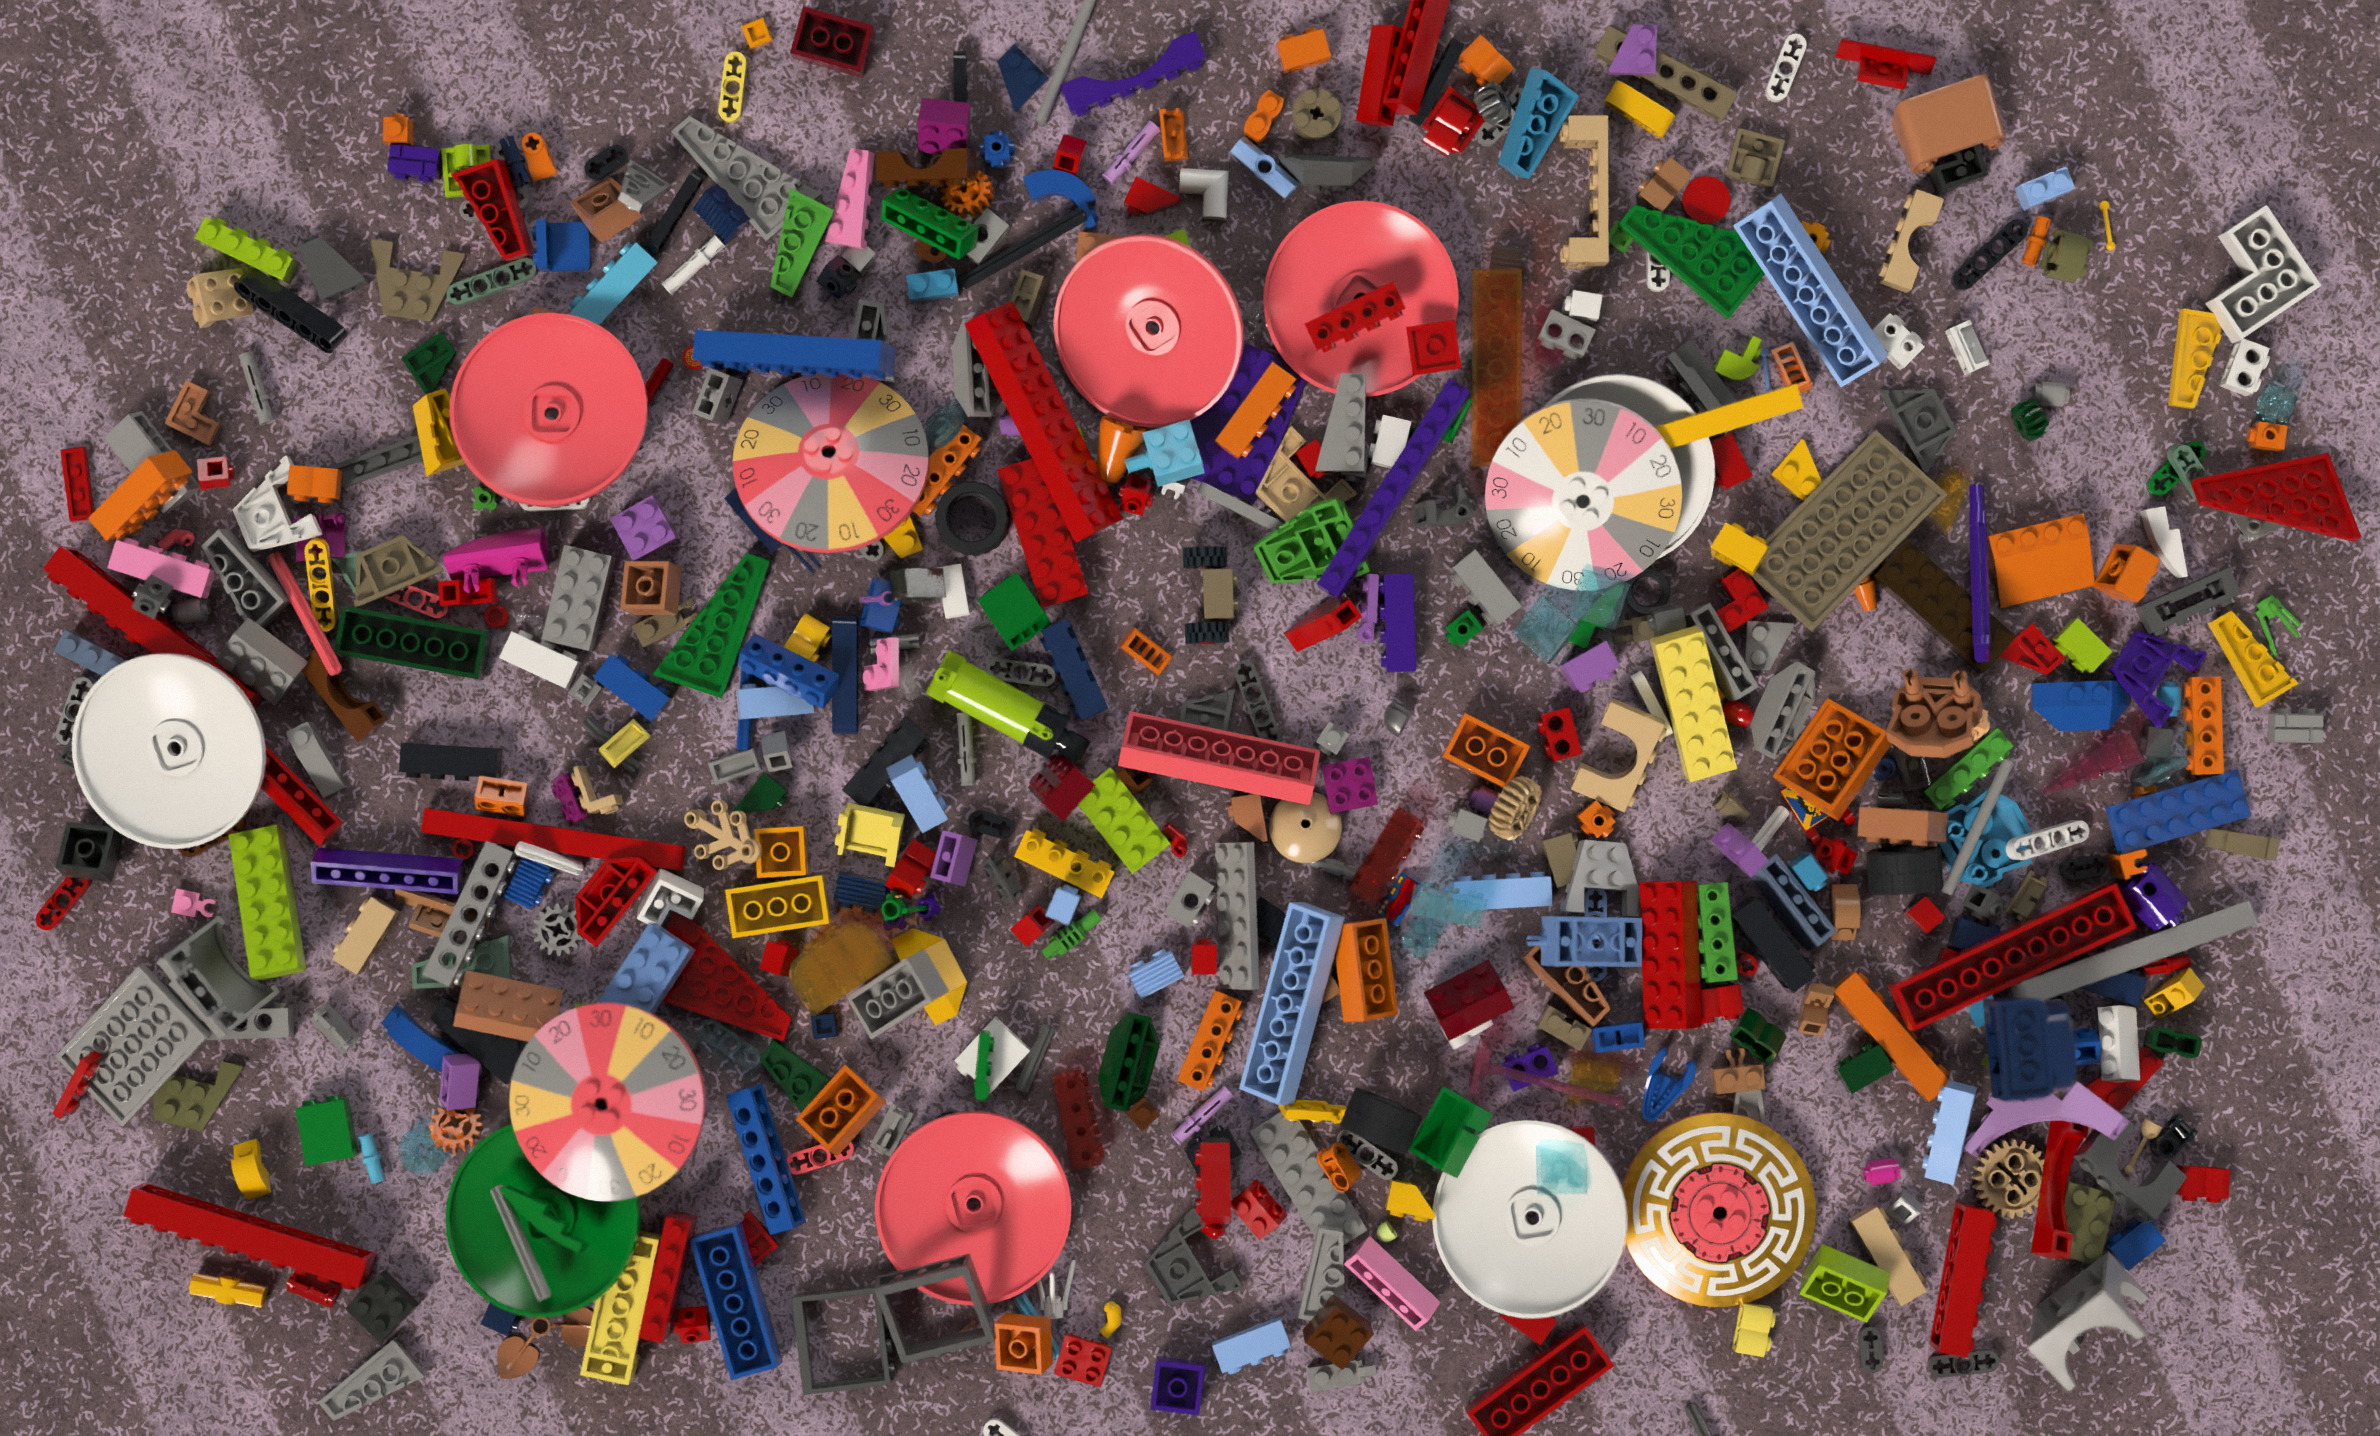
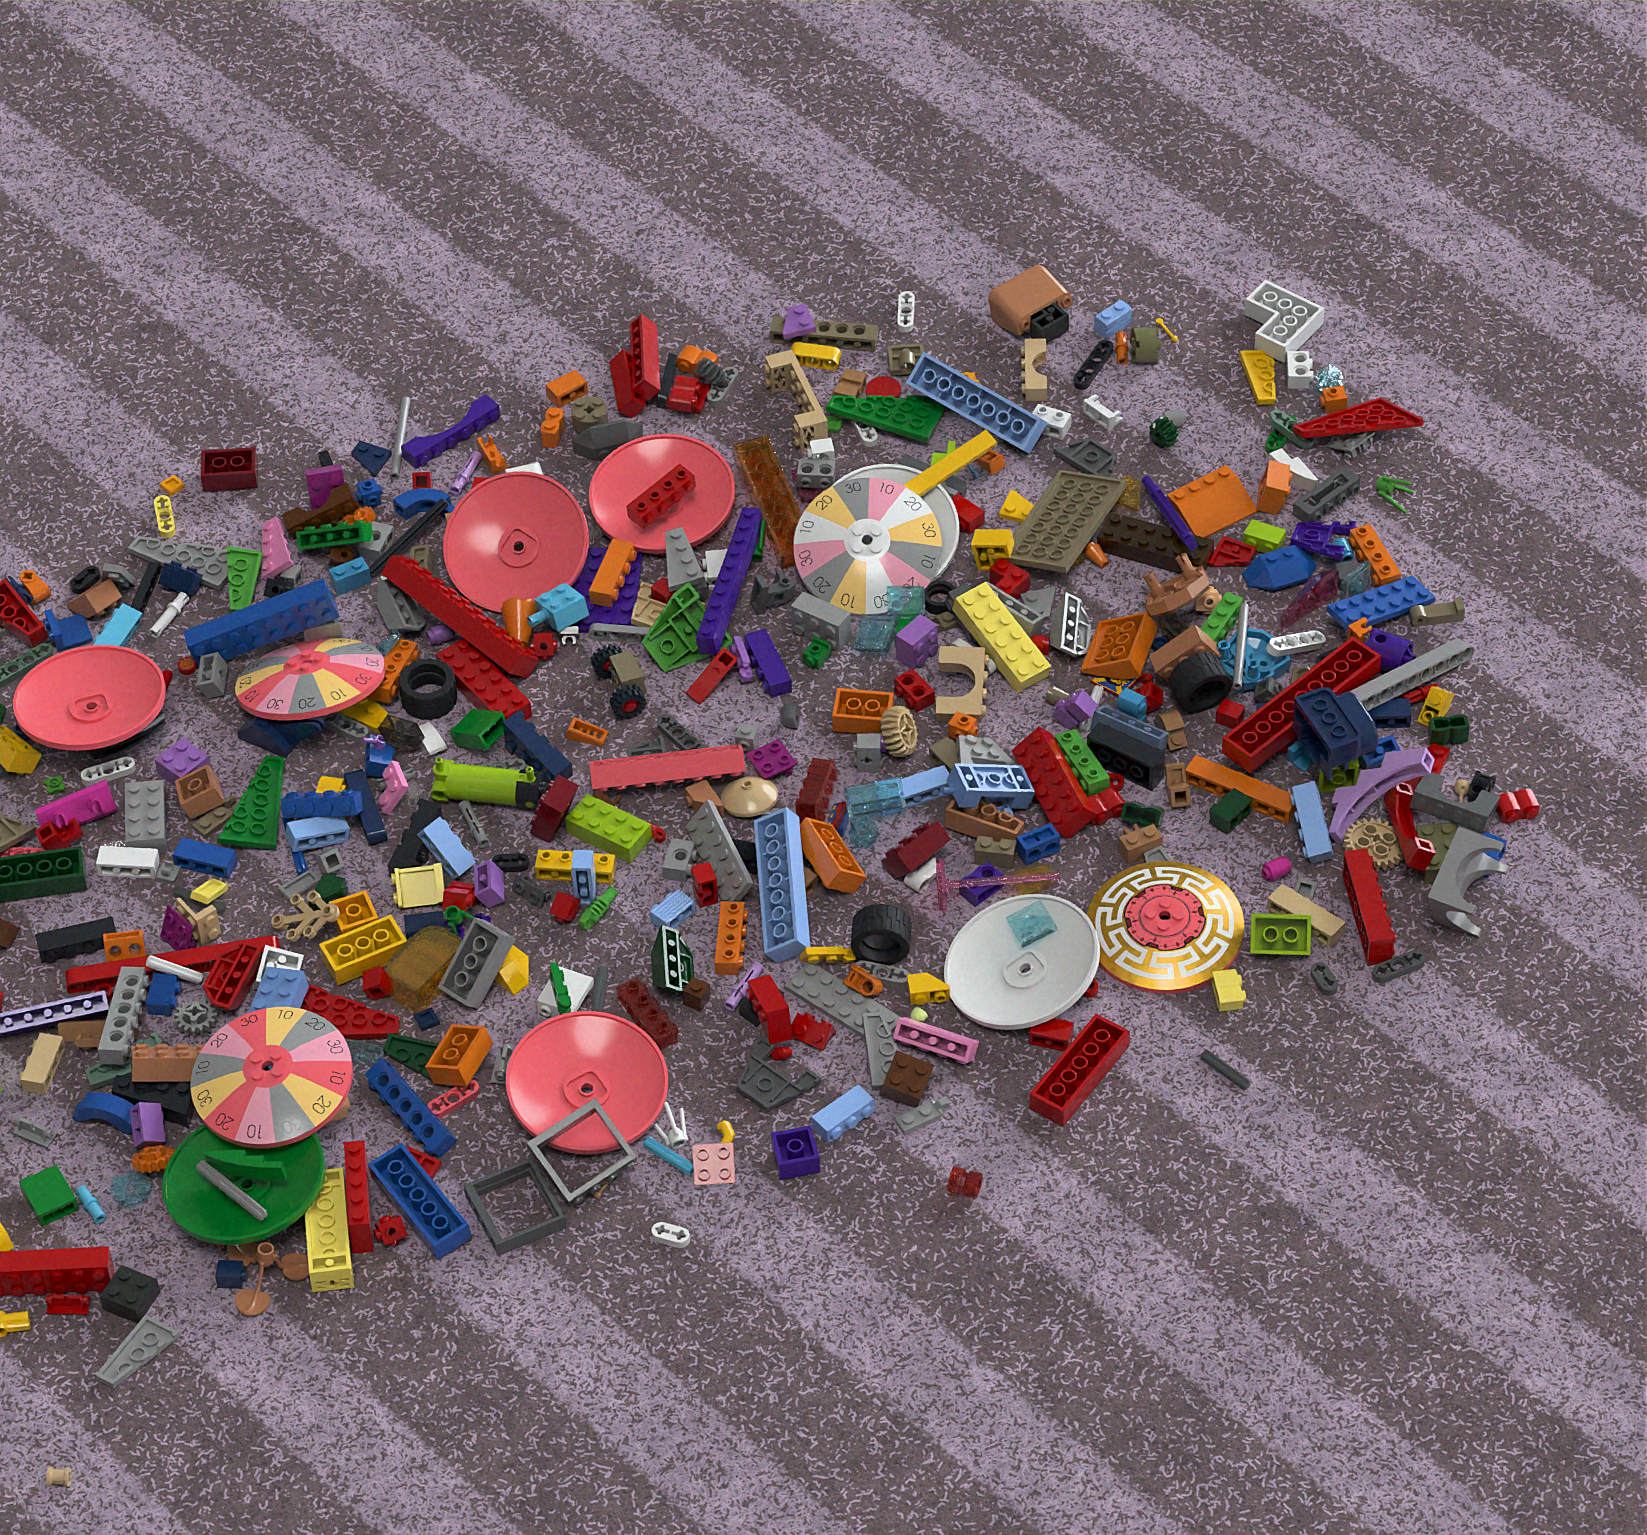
camera: 15 degrees left, 40 degrees down
(496, 616) = (88, 849): red tile -> none
(1023, 1343) = (661, 1157): orange brick -> none
(1276, 178) = (564, 453): light blue piece -> none
(1433, 347) = (724, 497): red plate -> none
(1450, 1132) = (937, 930): green piece -> none
(1536, 122) = (744, 375): dark azure wedge -> none
(1662, 1089) = (1087, 872): blue animal -> none
(1884, 64) = (969, 289): red bracket -> none
(2118, 1043) = (1406, 733): white brick -> none
(2254, 666) = (1388, 516): yellow wing -> none
(2295, 727) = (1439, 541): light grey brick -> none

